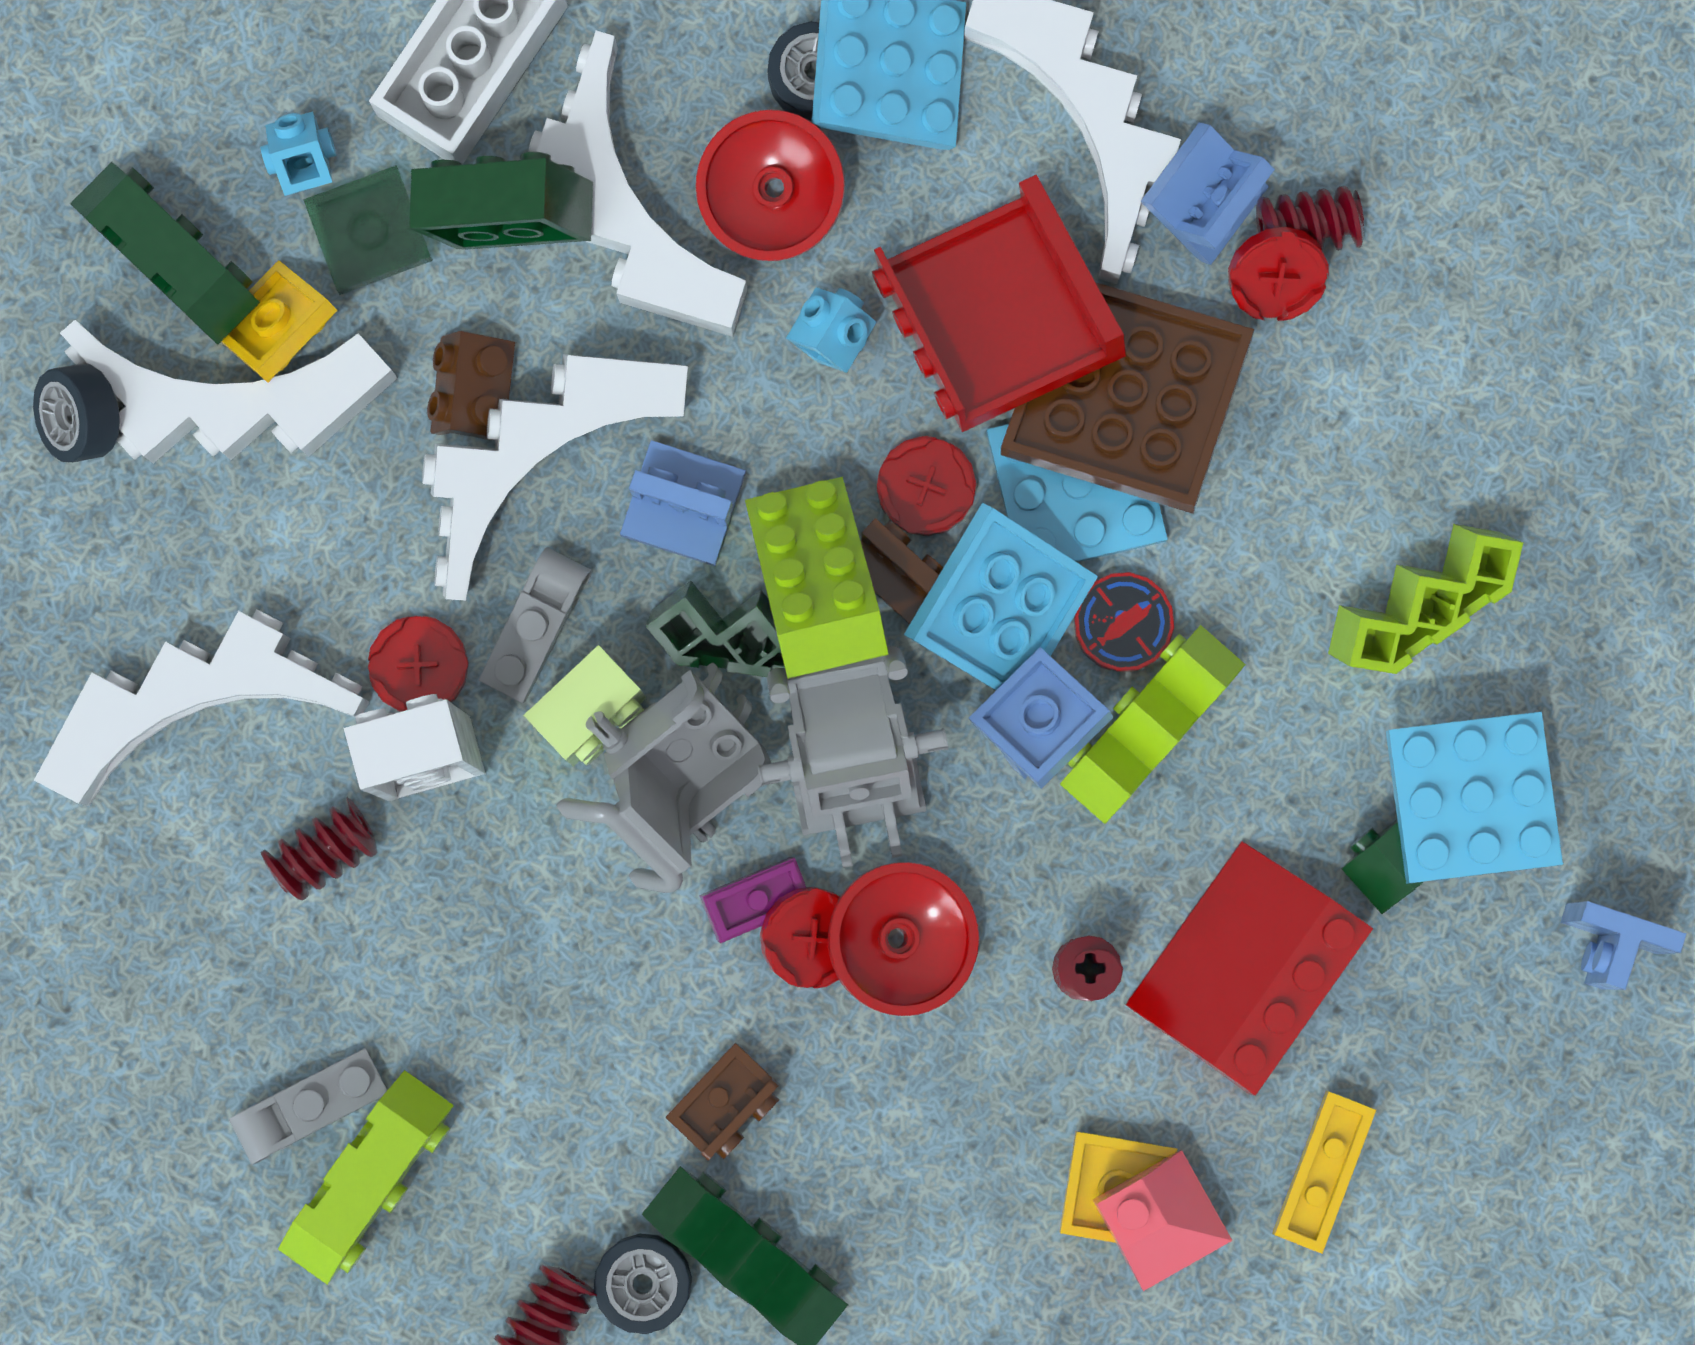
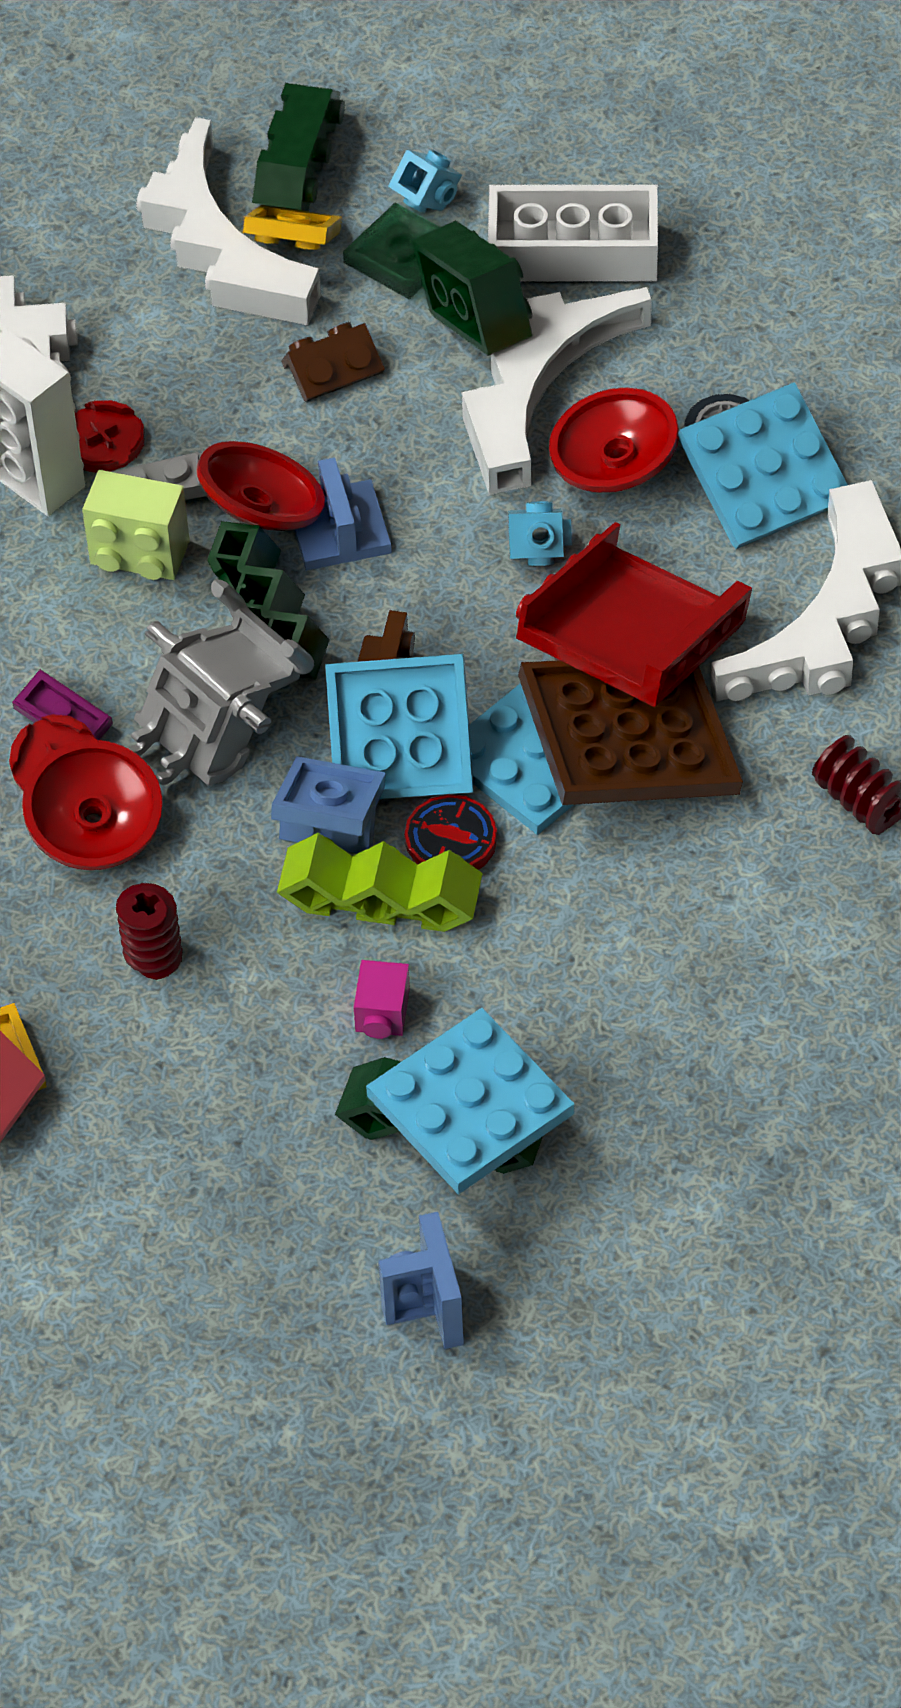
camera: 60 degrees right, 30 degrees down
(76, 413) = (144, 153): black wheel -> none
(525, 432) = (313, 394): white arch -> none
(617, 543) = (260, 486): none -> red dish
(673, 775) = (115, 582): light grey piece -> none
(816, 577) = (329, 588): lime brick -> none
(926, 486) = (483, 653): red tile -> none
(1207, 192) = (825, 701): medium blue bracket -> none
(1249, 967) = (226, 1061): red slope -> none
(1278, 274) = (800, 779): red tile -> none
(1278, 797) = (381, 998): none -> dark pink brick
(1324, 1172) = (93, 1194): yellow plate -> none
(1427, 603) = (613, 1011): lime brick -> none

